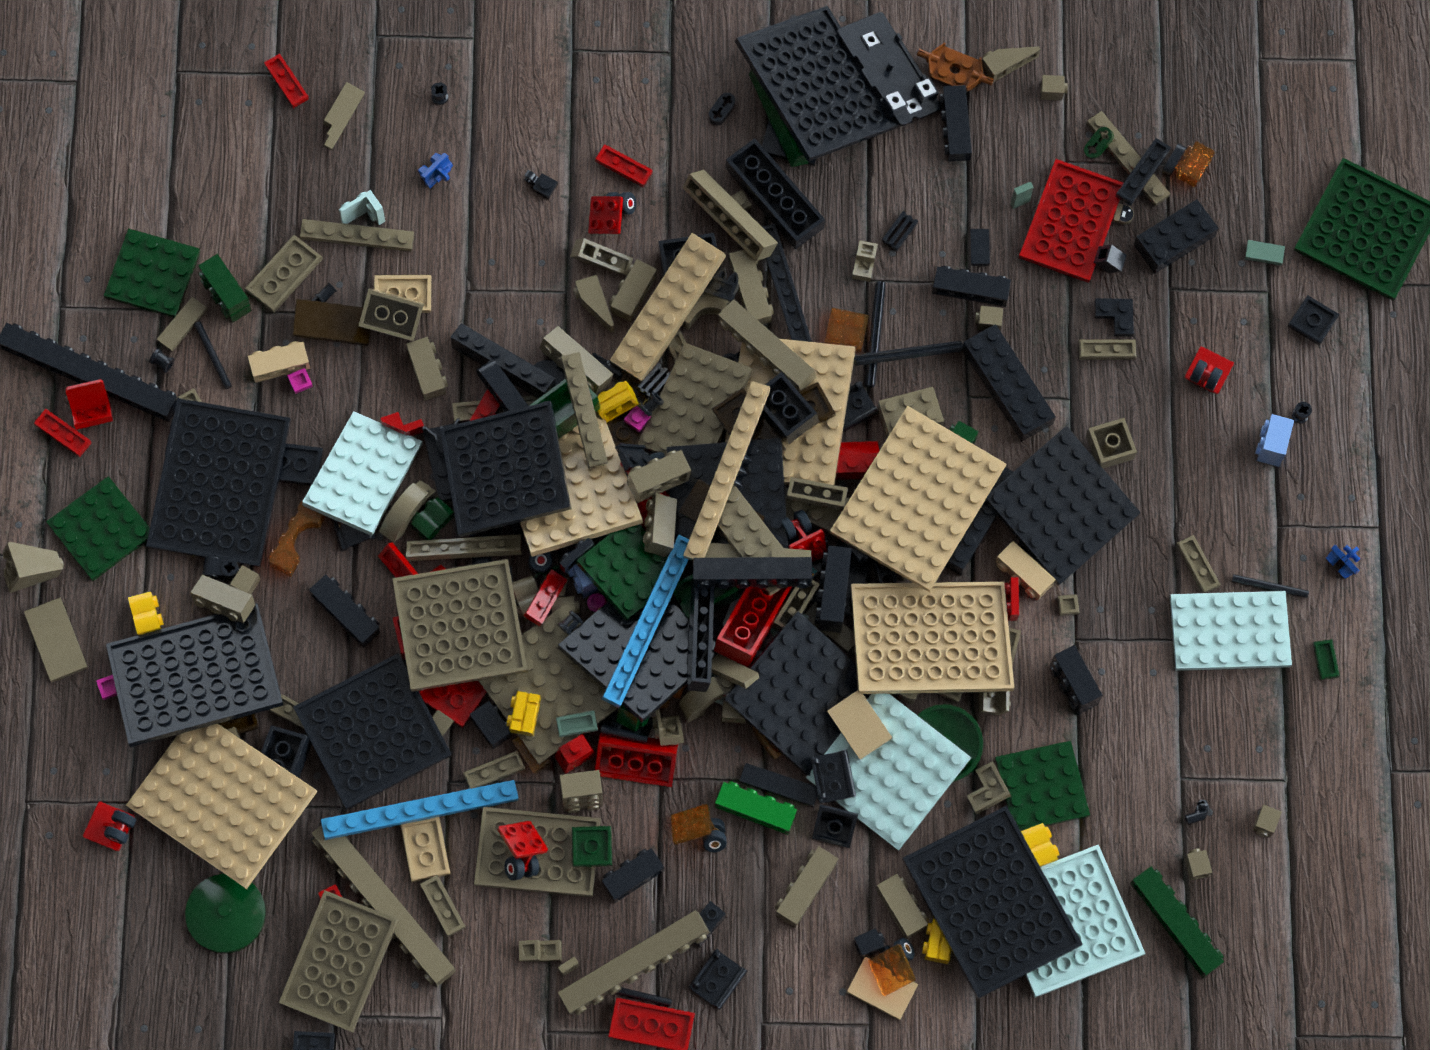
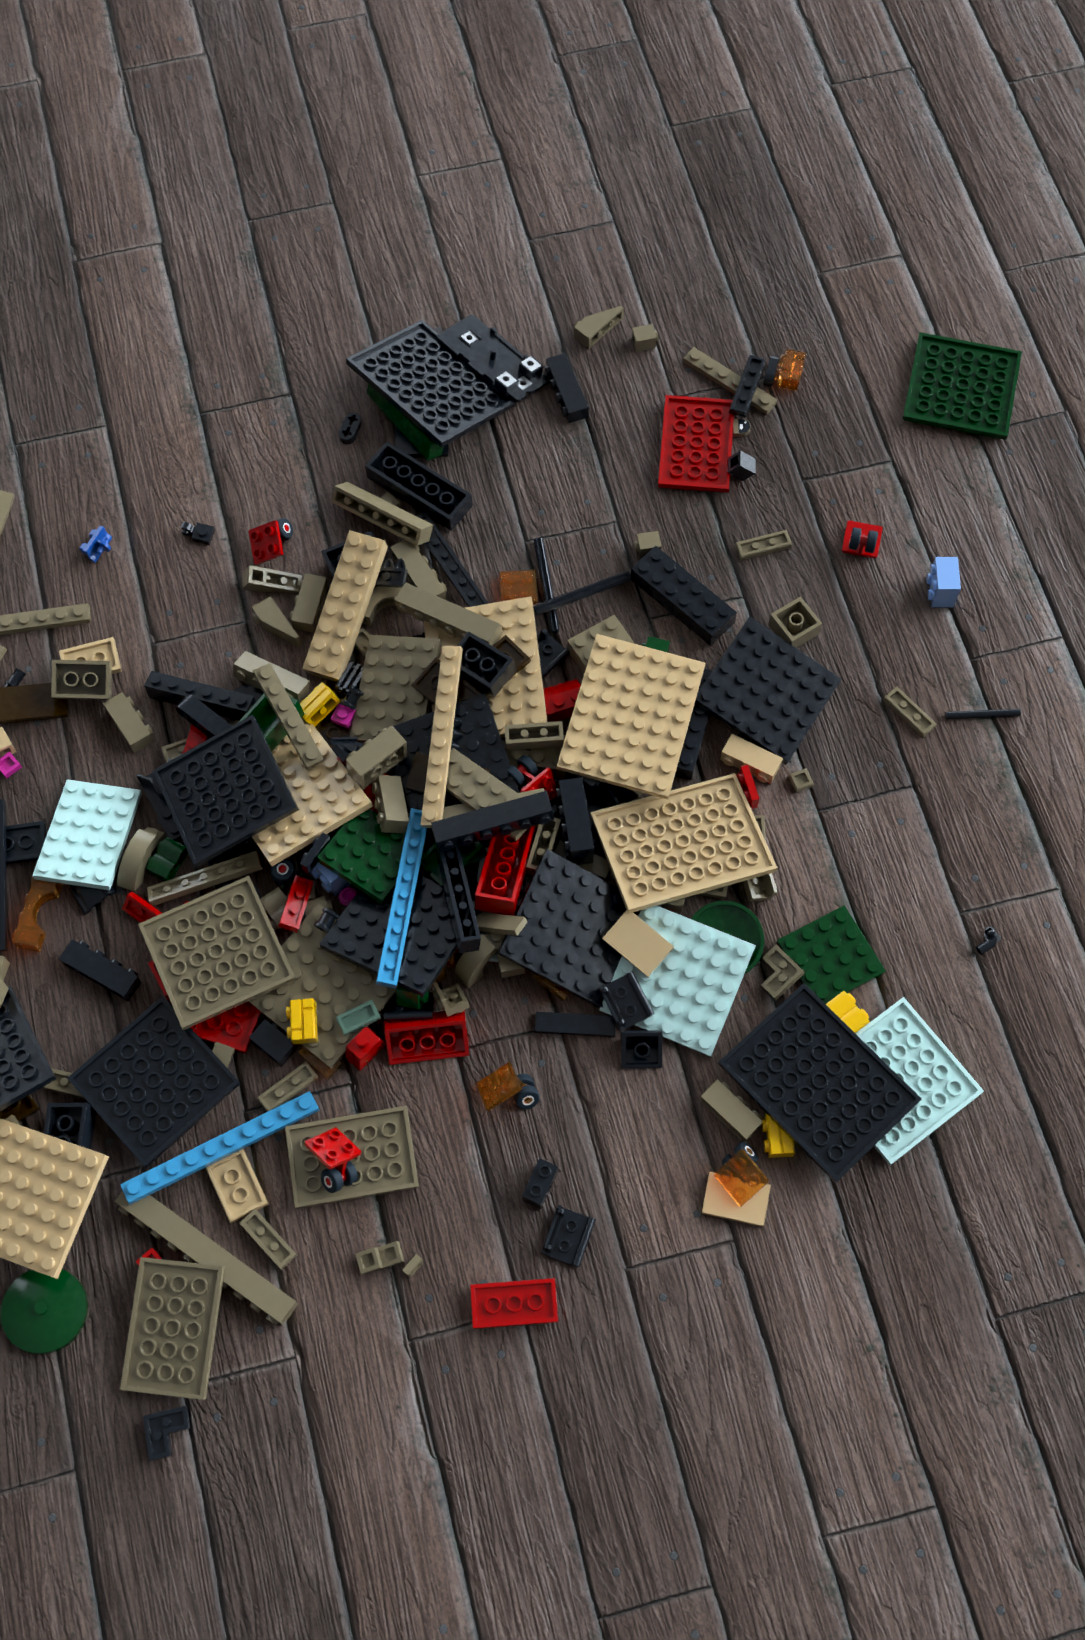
camera: 10 degrees left, 5 degrees down
(363, 203) = (31, 591): light aqua bracket -> none
(394, 422) = (108, 778): red slope -> none
(439, 98) = (83, 476): black bush -> none
(581, 791) = (380, 1083): dark tan brick -> none
(591, 846) = (405, 1136): dark green plate -> none
(610, 366) = (313, 678): black axle -> none
(624, 165) = (272, 497): red plate -> none
(632, 874) = (453, 1153): black brick -> none
(633, 963) = (478, 1244): dark tan brick -> none
(645, 997) = (481, 1276): black bar -> none
(756, 808) = (558, 1053): green brick -> none
(806, 887) = (631, 1117): dark tan brick -> none
(864, 261) = (518, 524): dark tan slope -> none
(869, 943) = (709, 1156): black brick -> none
(903, 215) = (548, 479): black tile -> none
(944, 58) = (539, 339): dark orange plate -> none
(971, 286) = (622, 521): black brick -> none
(979, 247) = (619, 487): black tile -> none
(1021, 195) = (645, 431): sand green tile -> none
(1075, 680) = (832, 846): black brick -> none
(1101, 145) = (703, 373): dark green beam -> none
(1118, 309) = (762, 508): black plate -> none
(1175, 236) = (794, 432): black brick -> none
(1177, 922) = (1005, 1052): dark green brick -> none
(1198, 864) = (1005, 990): dark tan brick -> none
(1230, 630) = (960, 764): light aqua plate -> none
(1264, 252) = (877, 428): sand green tile -> none
(1266, 821) = (1056, 930): dark tan brick -> none
(1302, 407) = (959, 550): black bush -> none
(1313, 320) = (941, 473): black plate -> none
(1326, 659) = (1057, 766): dark green tile -> none
(1349, 568) = (1050, 676): blue hips -> none

